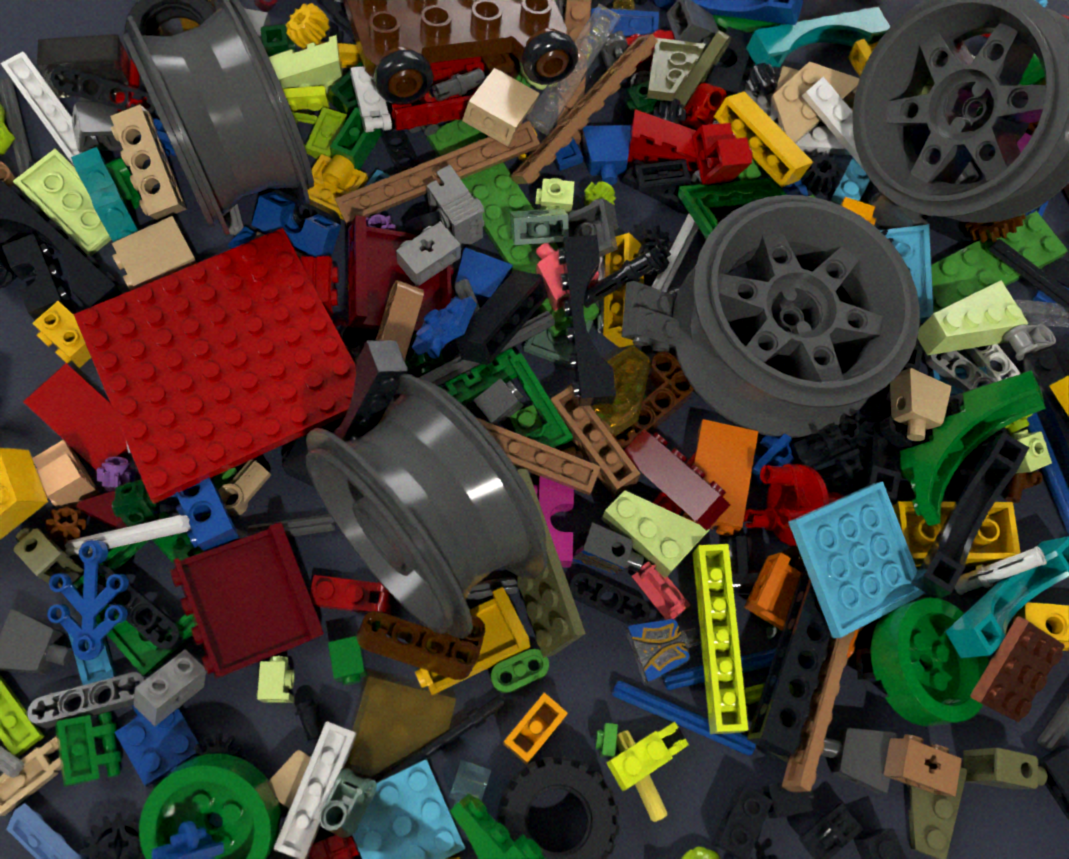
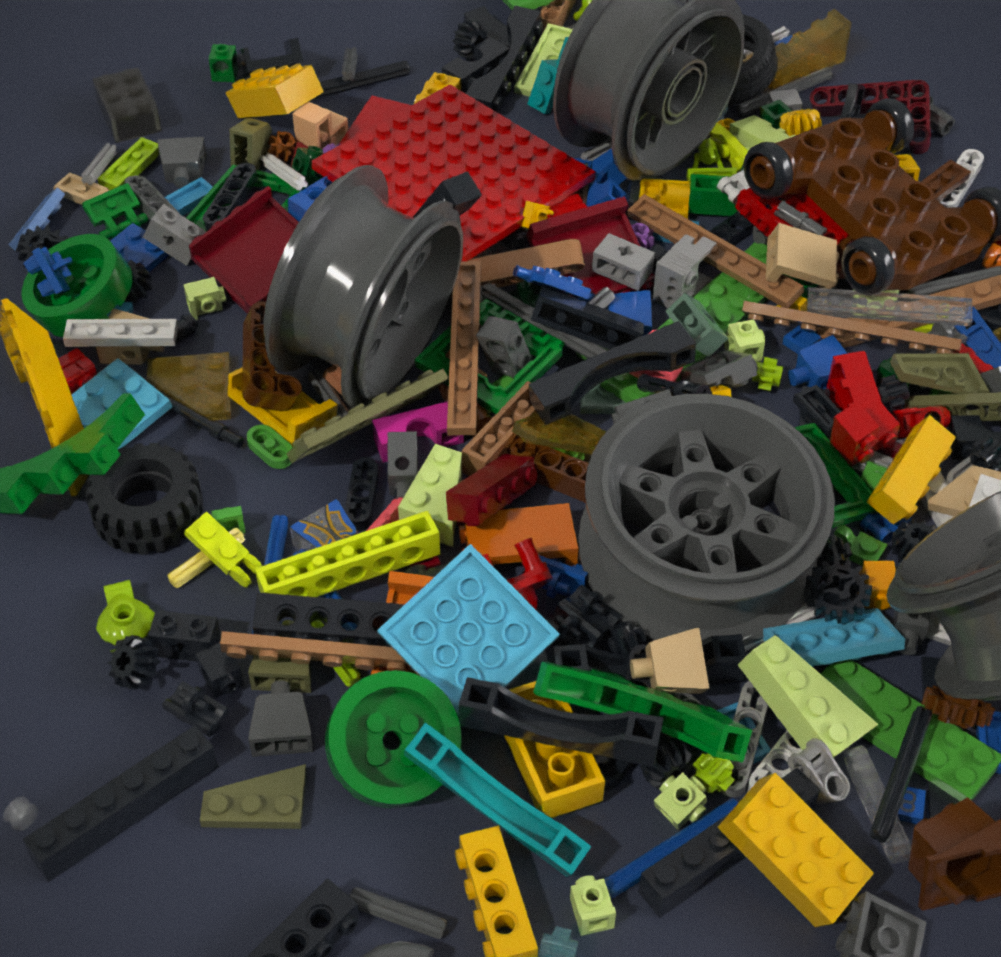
camera: 75 degrees right, 20 degrees down
(89, 604) = (226, 170): blue plant -> none
(152, 253) = (532, 114): tan panel -> none
(329, 307) = (535, 212): none -> yellow tile
(347, 660) = (231, 333): green brick -> none
(347, 801) = (113, 352): sand green piece -> none
(470, 780) = (159, 431): clear light blue brick -> none
(535, 728) = (221, 462): light orange brick -> none
(922, 766) = (279, 776): medium nougat brick -> none
(1000, 570) = (524, 787): white pin -> none
(1011, 769) = (307, 845): olive torso -> none
(1018, 670) = (412, 813): copper plate -> none
(1020, 482) = (647, 814): reddish brown arm -> none

